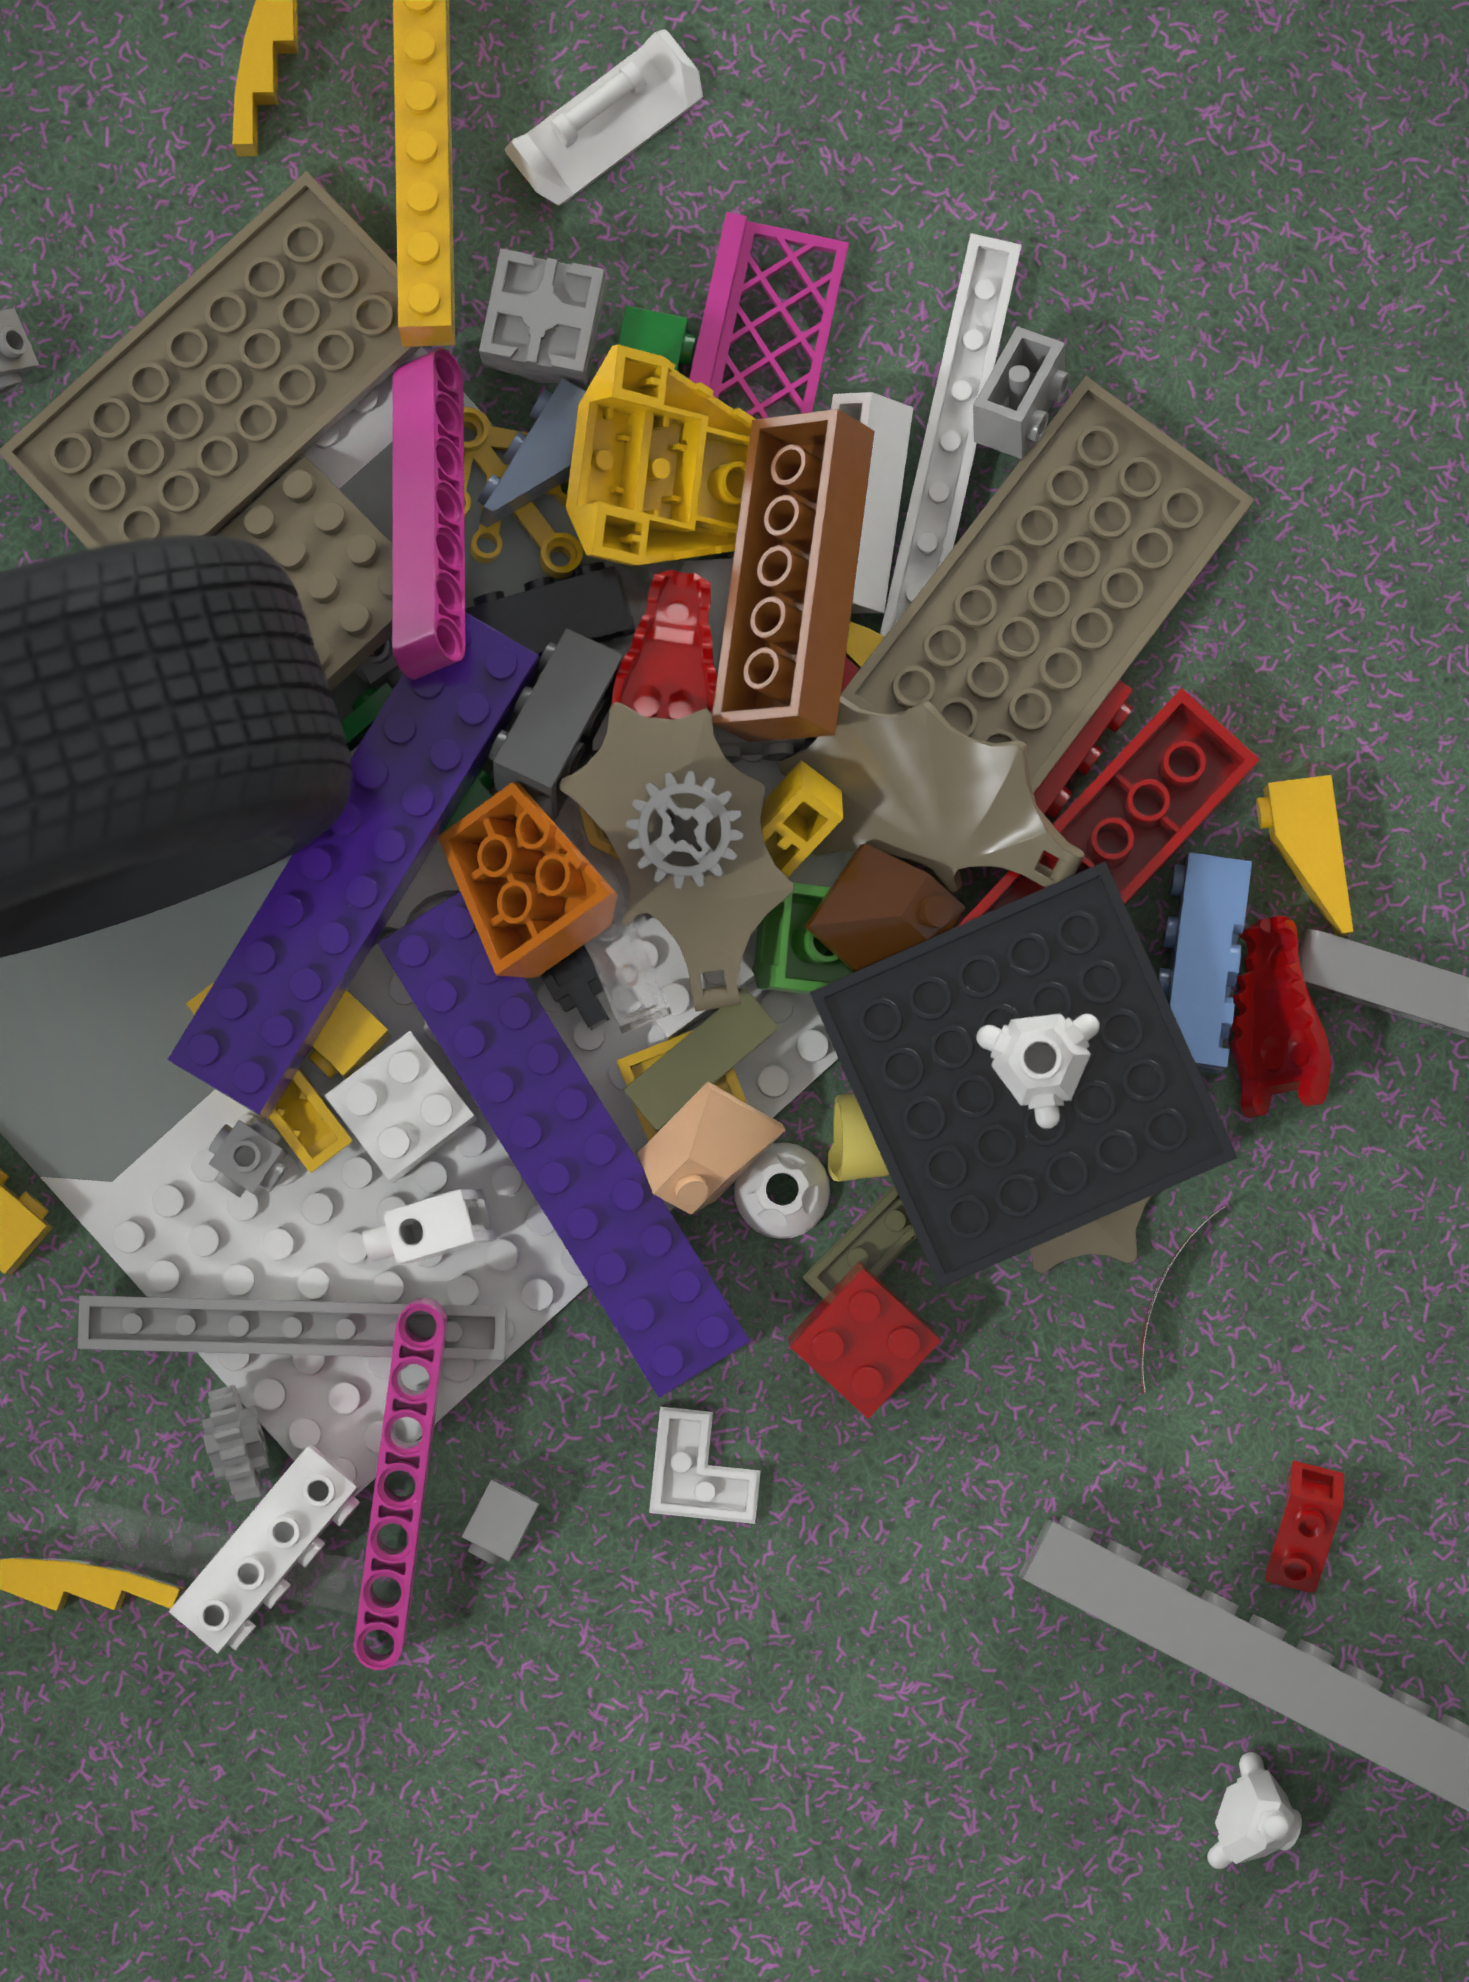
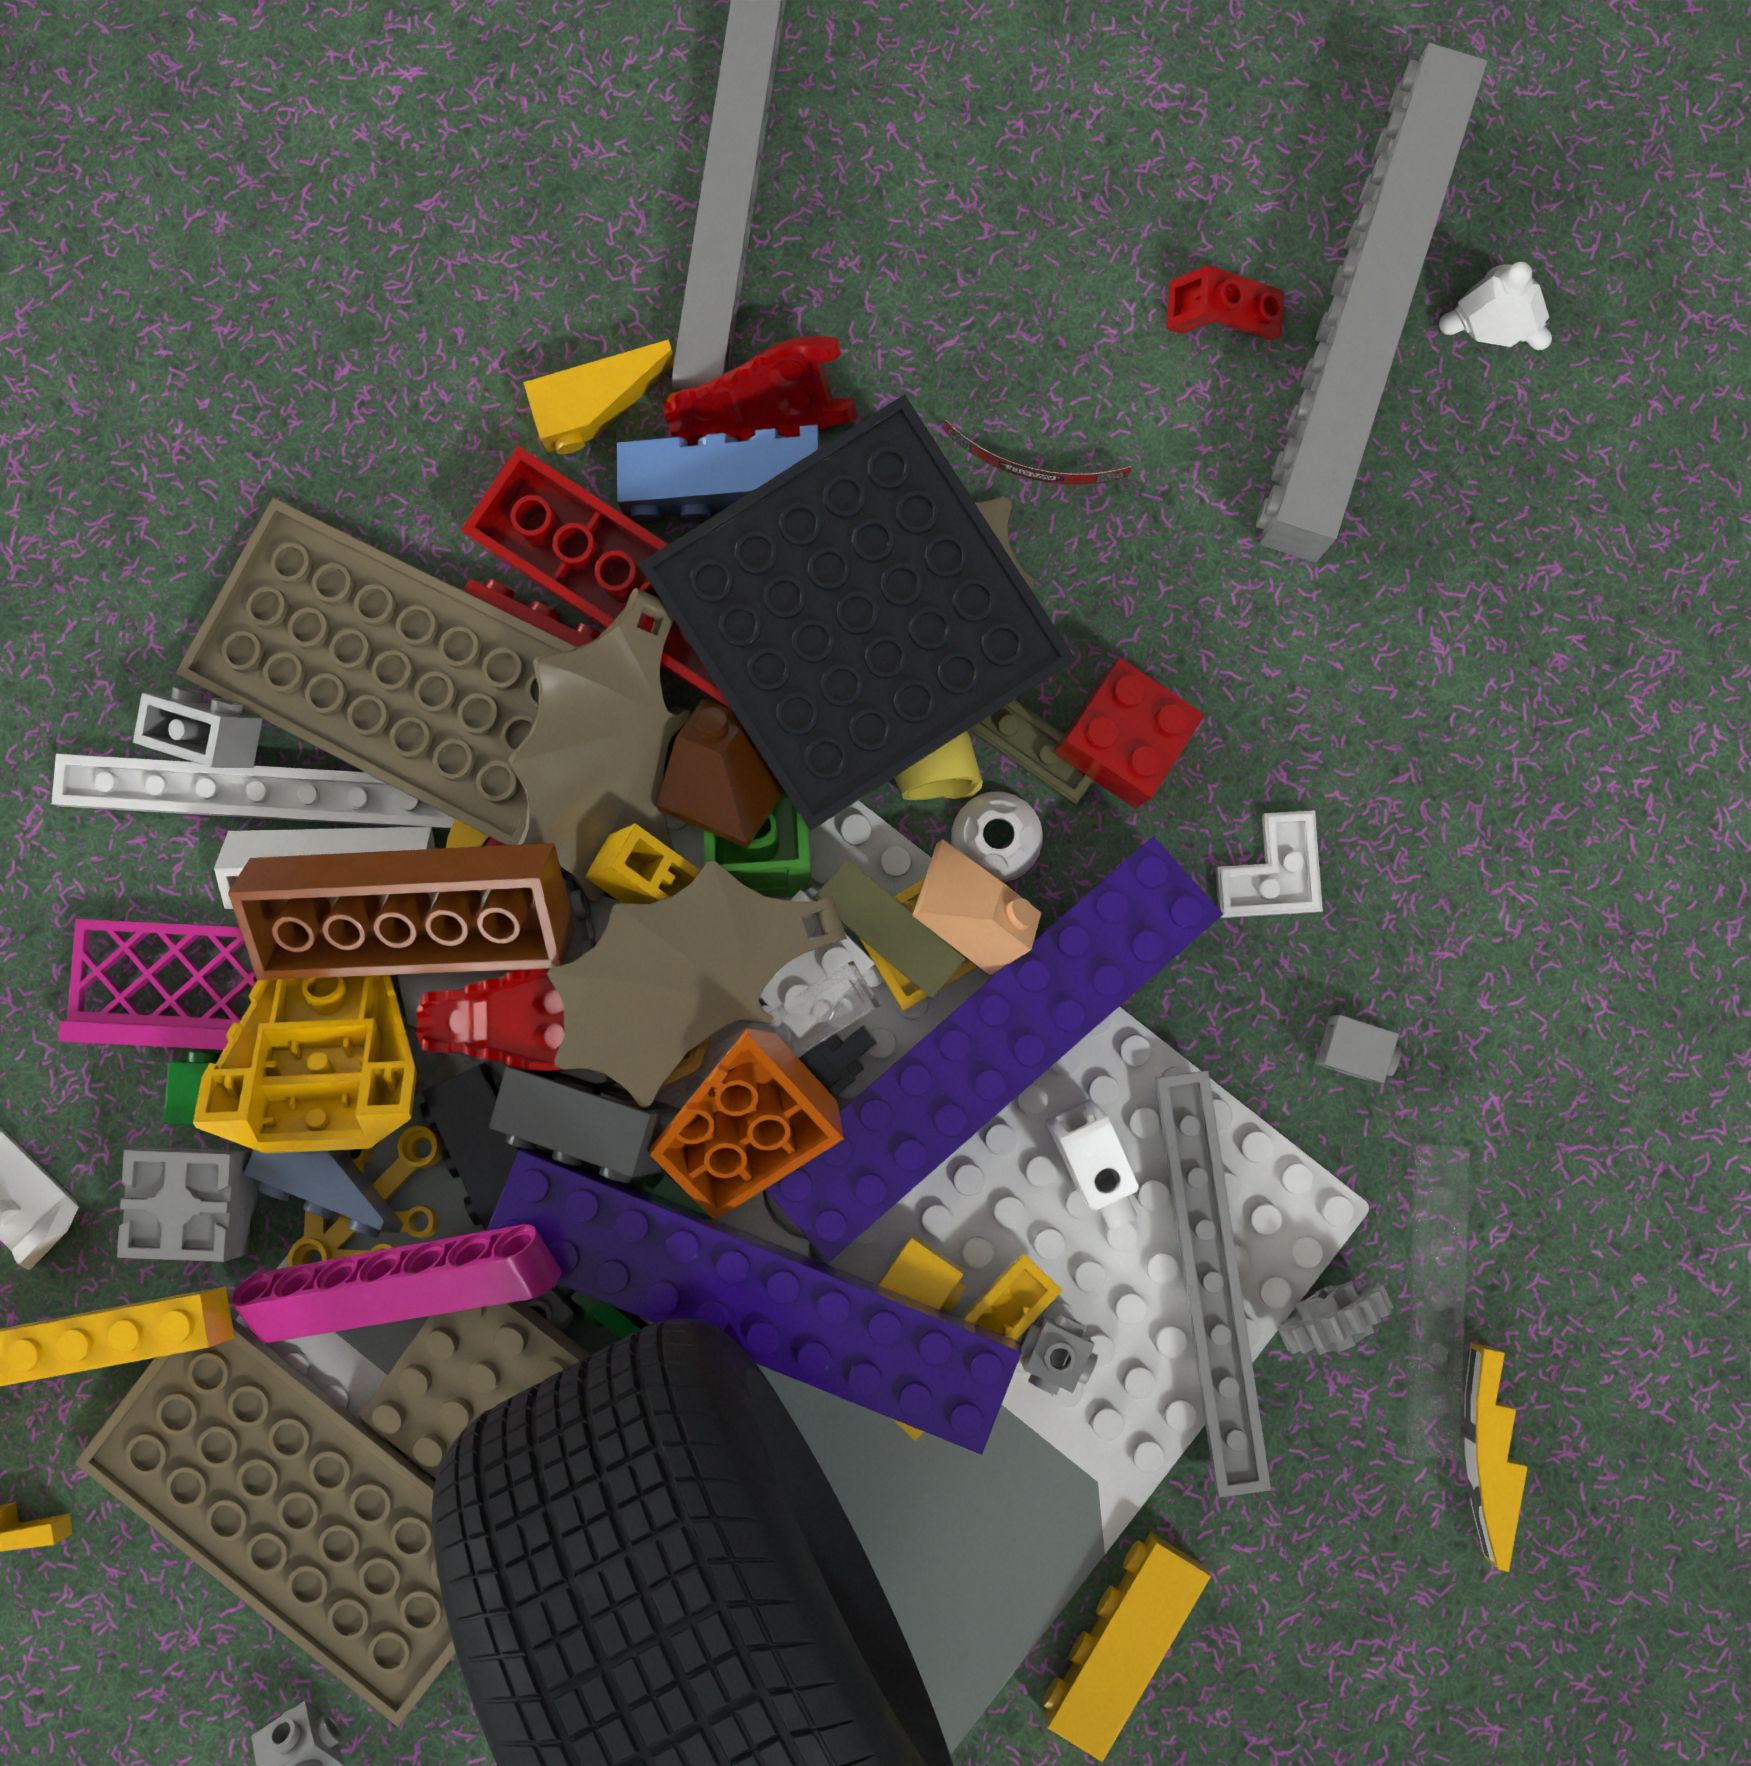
camera: 100 degrees left, 0 degrees up
(265, 1550) = (1431, 1271): white brick -> none
(392, 1508) = (1370, 1153): dark pink beam -> none
(401, 1107) = (982, 1212): white brick -> none
(665, 845) = (652, 956): light grey gear -> none
(1041, 1059) = (841, 593): white rock -> none

